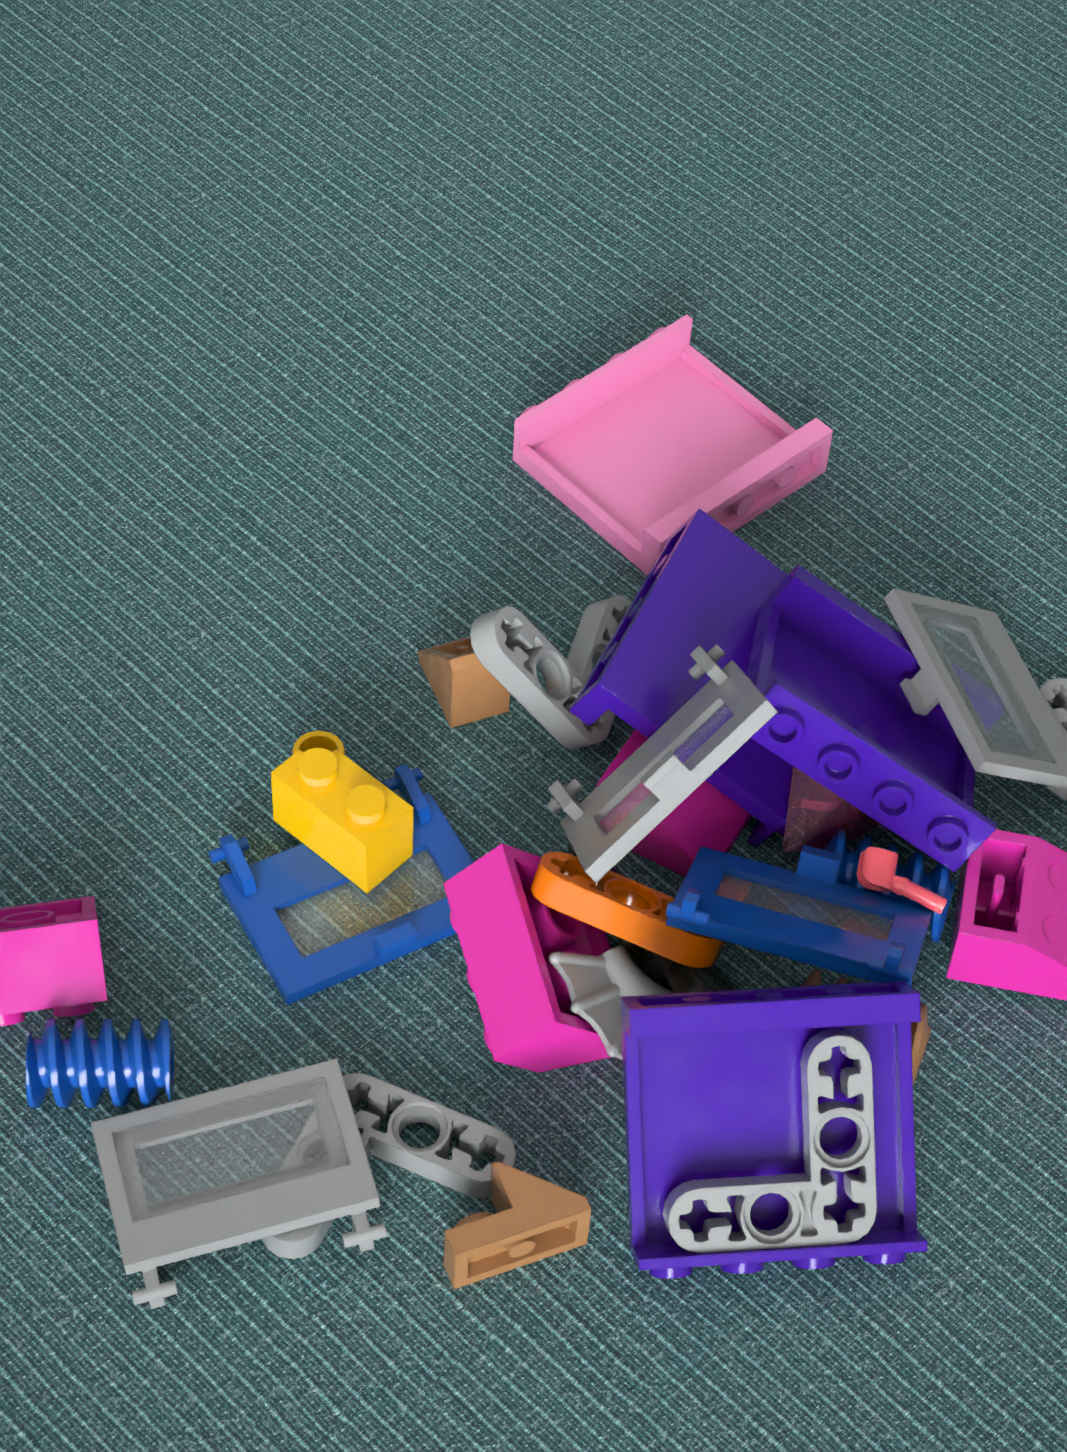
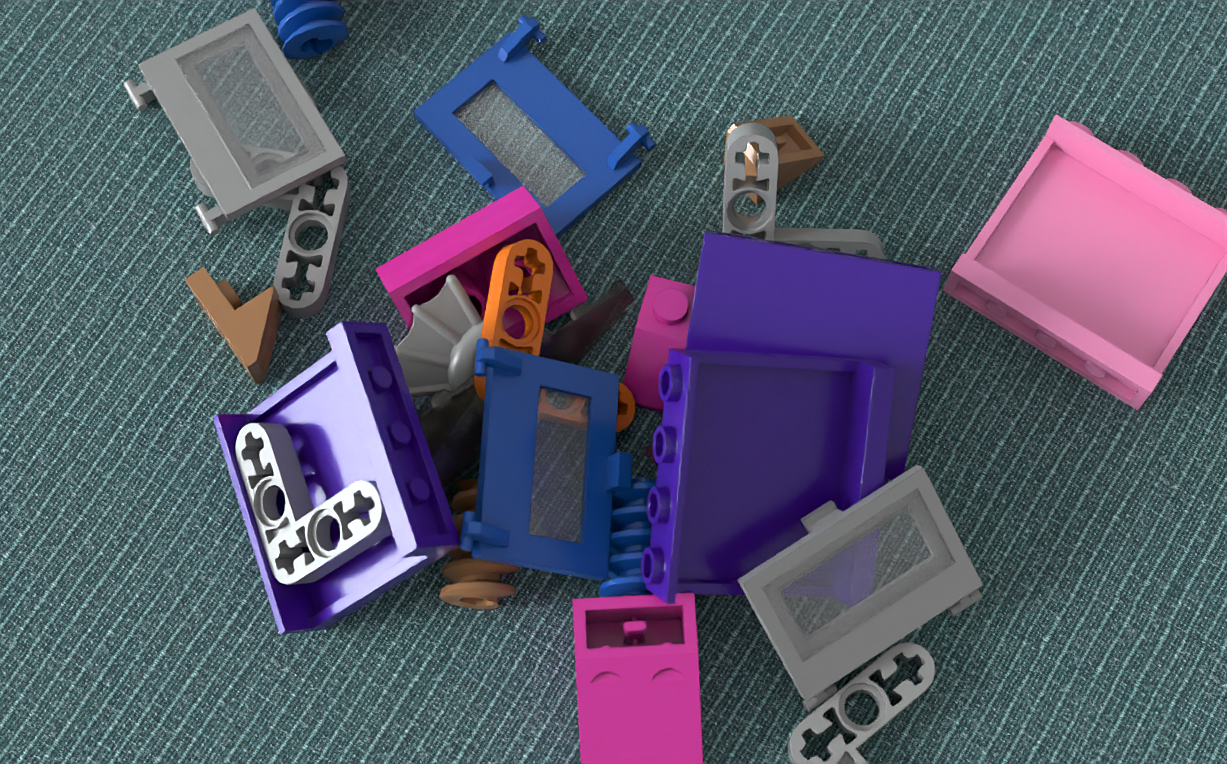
camera: 80 degrees right, 20 degrees up
(341, 811) = (580, 90): yellow hinge -> none
(664, 766) = (634, 308): light grey piece -> none
(877, 873) = (612, 520): coral hand -> none

